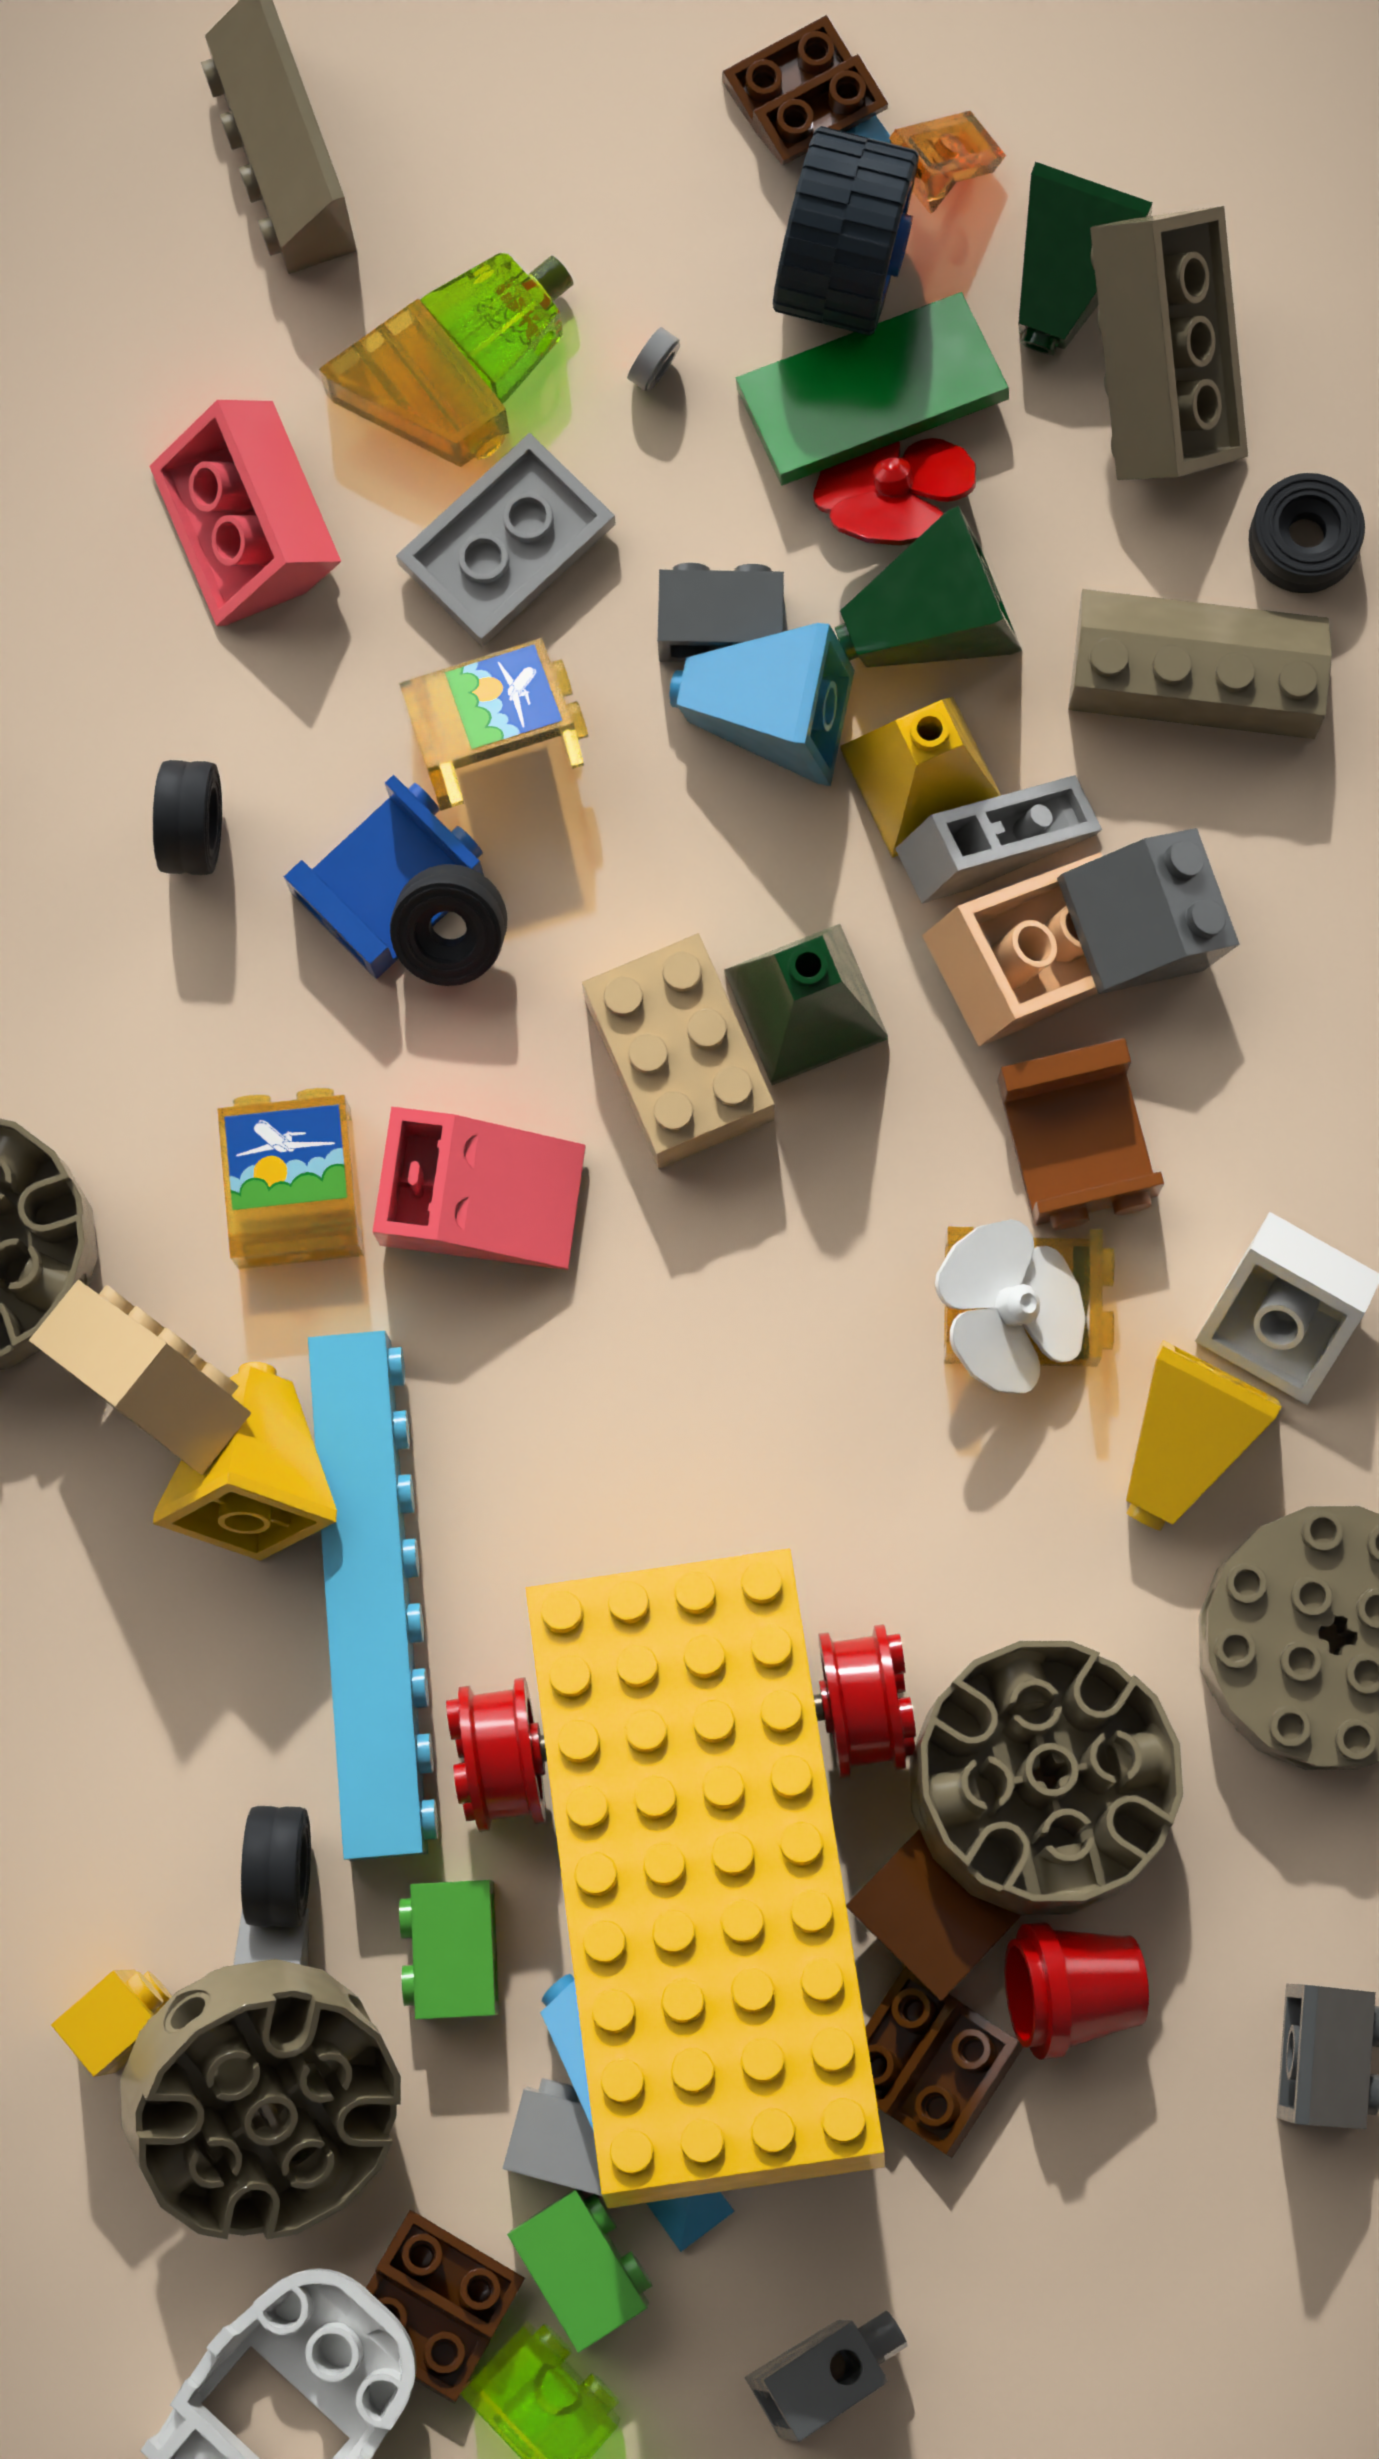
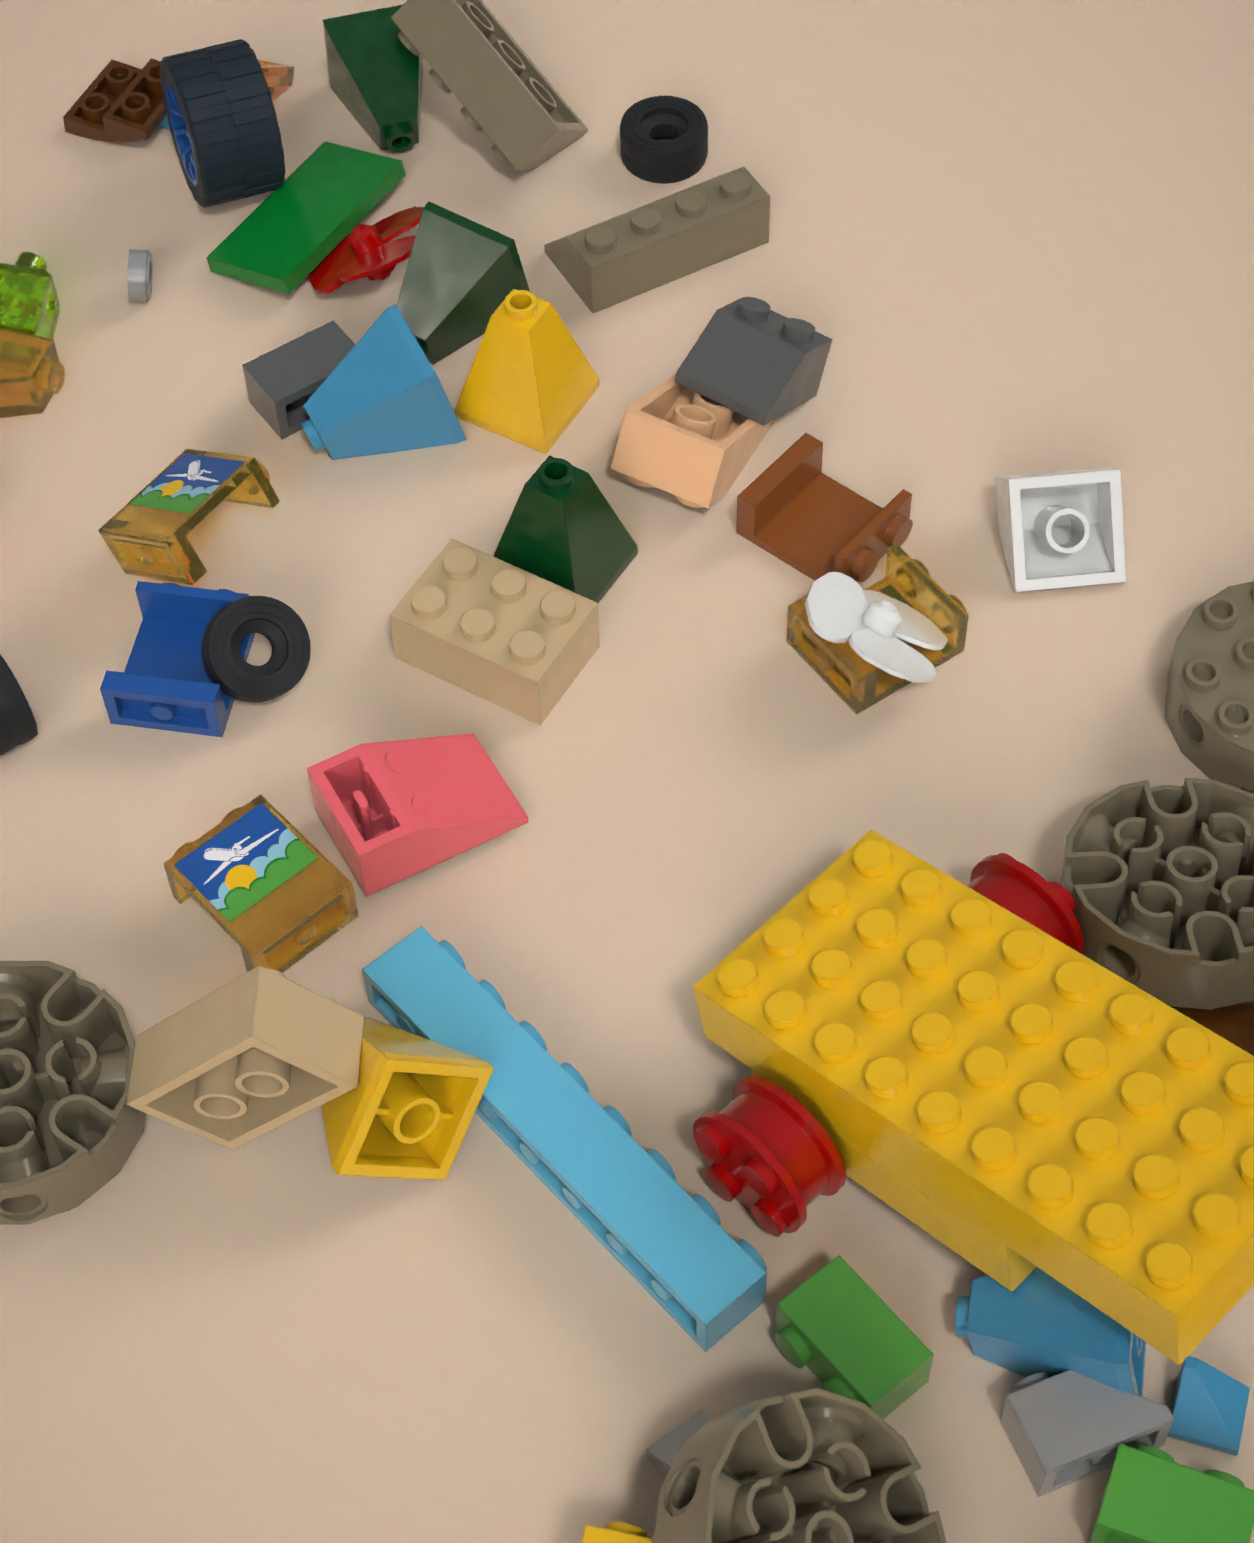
camera: 40 degrees left, 25 degrees down
(276, 1866) = (653, 1375): black tyre -> none
(506, 539) = (111, 424): light grey plate -> none
(995, 836) = (596, 392): light grey slope -> none
(1190, 1433) = (1067, 620): yellow slope -> none

